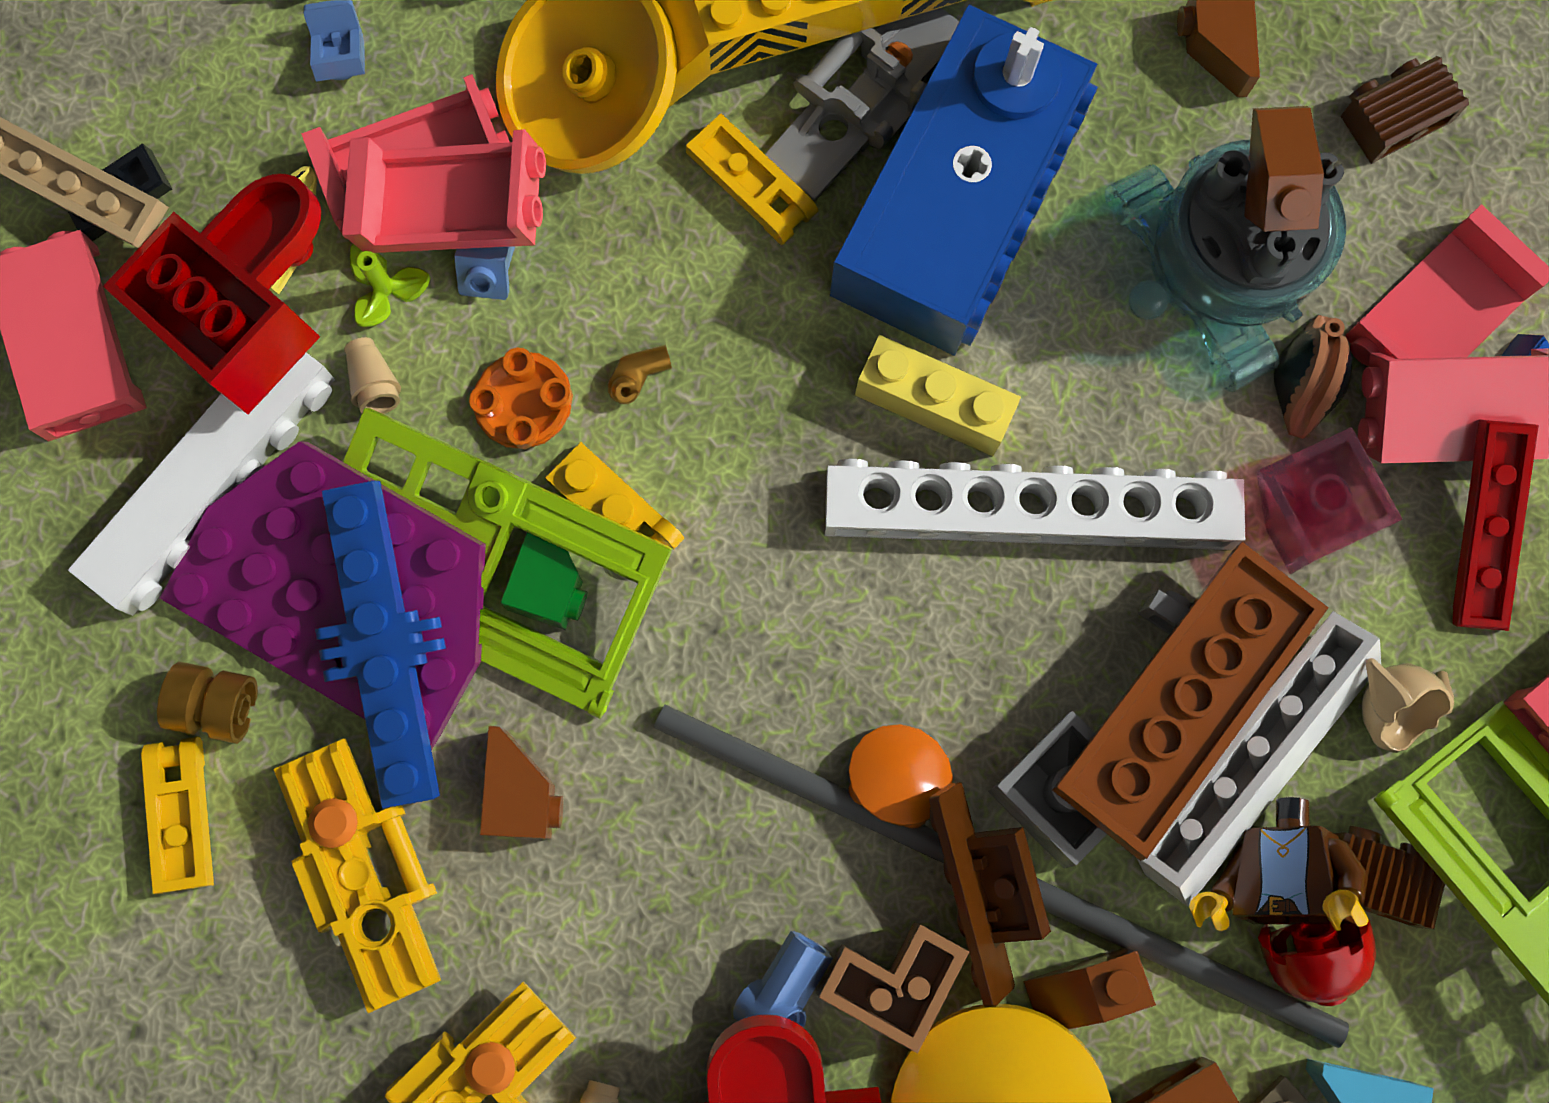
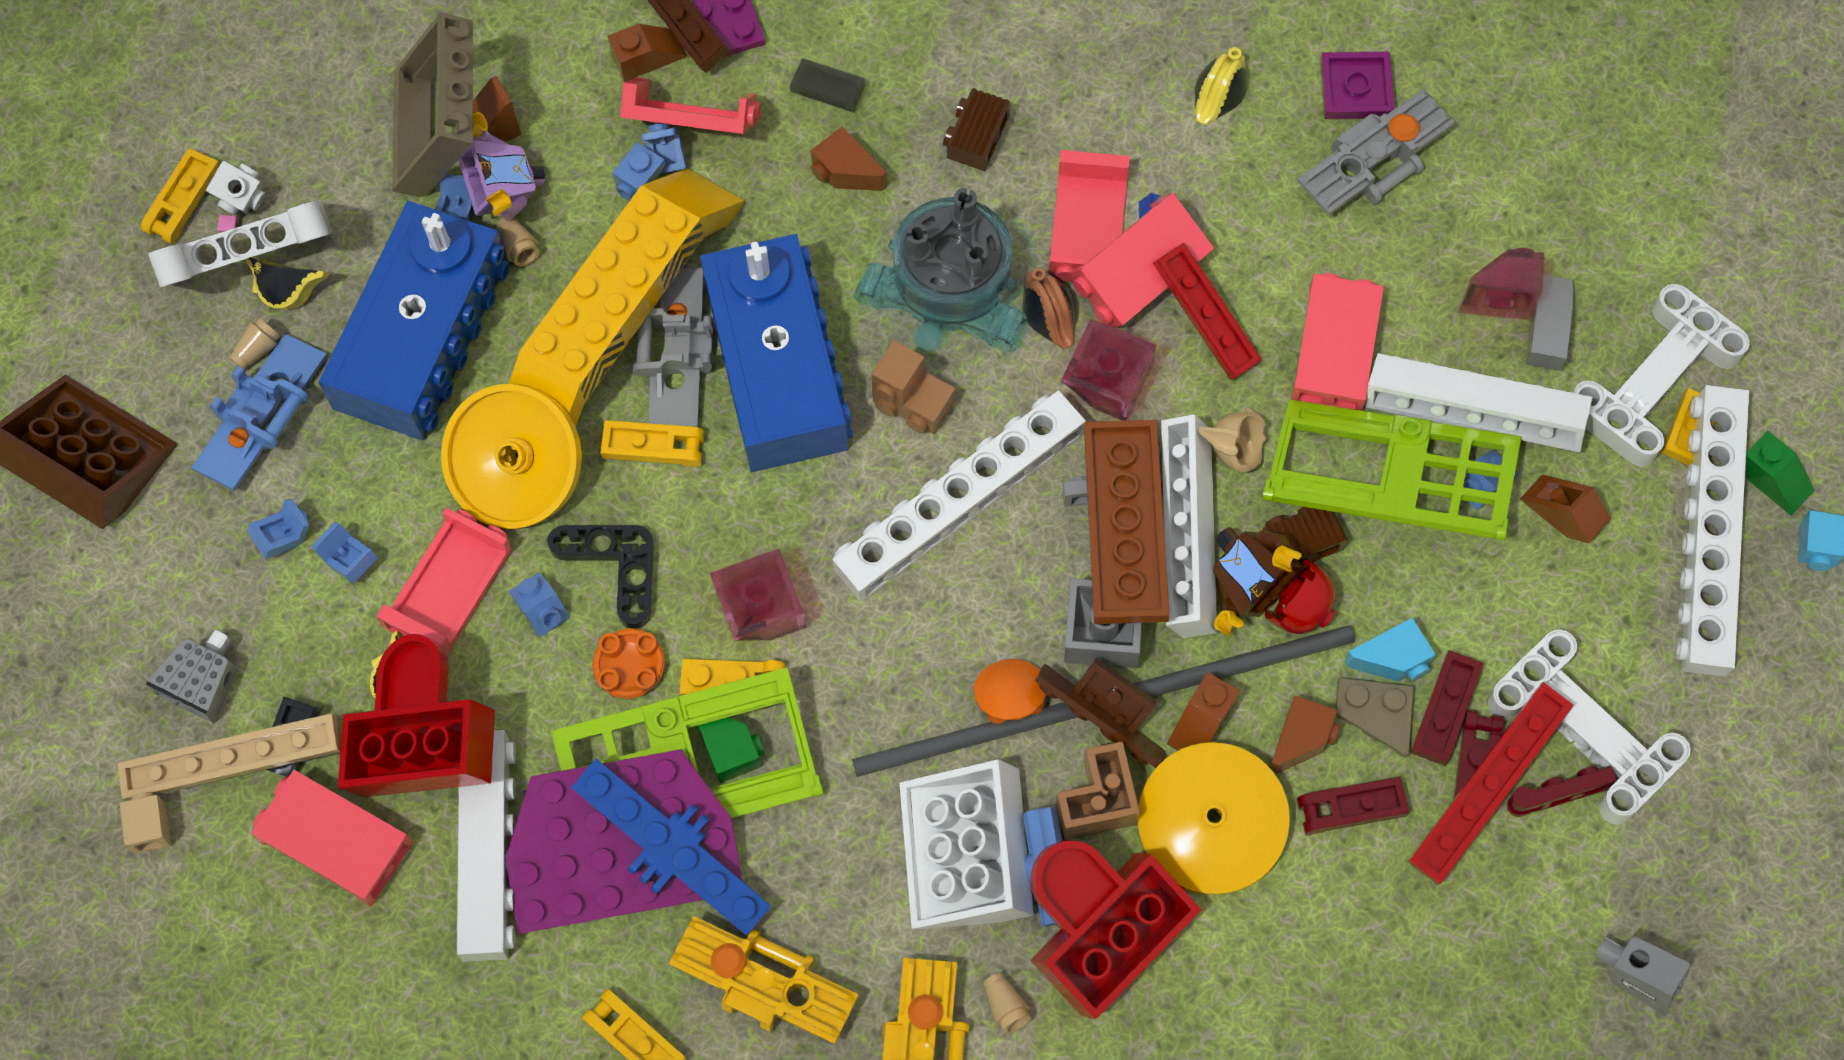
camera: 35 degrees left, 10 degrees down
(80, 52) = (196, 676): none -> light grey torso
(198, 700) = (598, 962): pearl gold wheel -> none
(370, 377) = (531, 720): tan cone -> none
(372, 270) = (484, 660): lime plant -> none
(443, 196) = (492, 584): coral panel -> none
(516, 792) = (813, 867): dark orange slope -> none
(617, 286) = (628, 560): none -> black beam
(633, 370) = (677, 600): pearl gold arm -> none
(699, 913) = (966, 847): none -> white slope
(711, 443) = (758, 598): none -> clear pink slope
(936, 395) = (858, 477): light yellow brick -> none
(1074, 341) = (907, 390): none -> medium nougat brick
(1284, 170) = (944, 215): dark orange slope -> none

